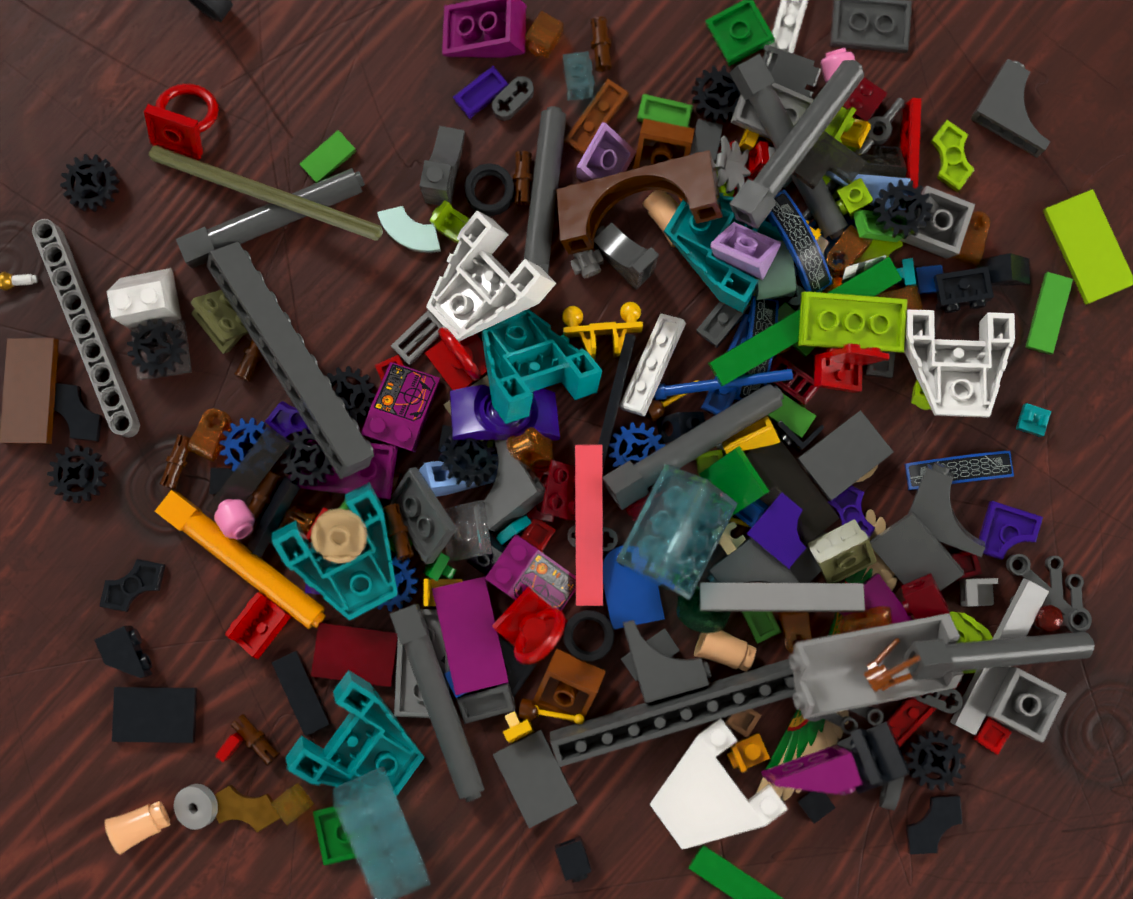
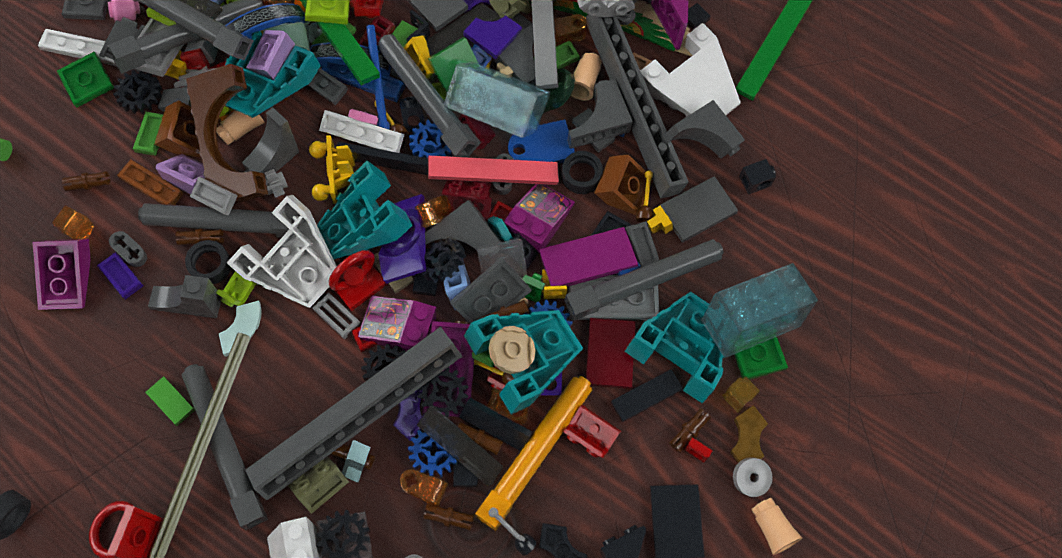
camera: 95 degrees left, 15 degrees down
(144, 538) = (524, 542): none -> hinge
(234, 518) = (499, 453): bright pink head -> none
(241, 360) = (355, 461): none -> clear light blue sticker
(531, 626) = (574, 210): red tile -> none
(564, 191) = (213, 196): none -> light grey tile
(578, 75) = (112, 195): clear light blue head -> none
(640, 801) = (710, 128): none -> dark grey arch
(672, 366) = (363, 116): none -> bright pink tile
(747, 752) = (664, 58): light orange bracket -> none

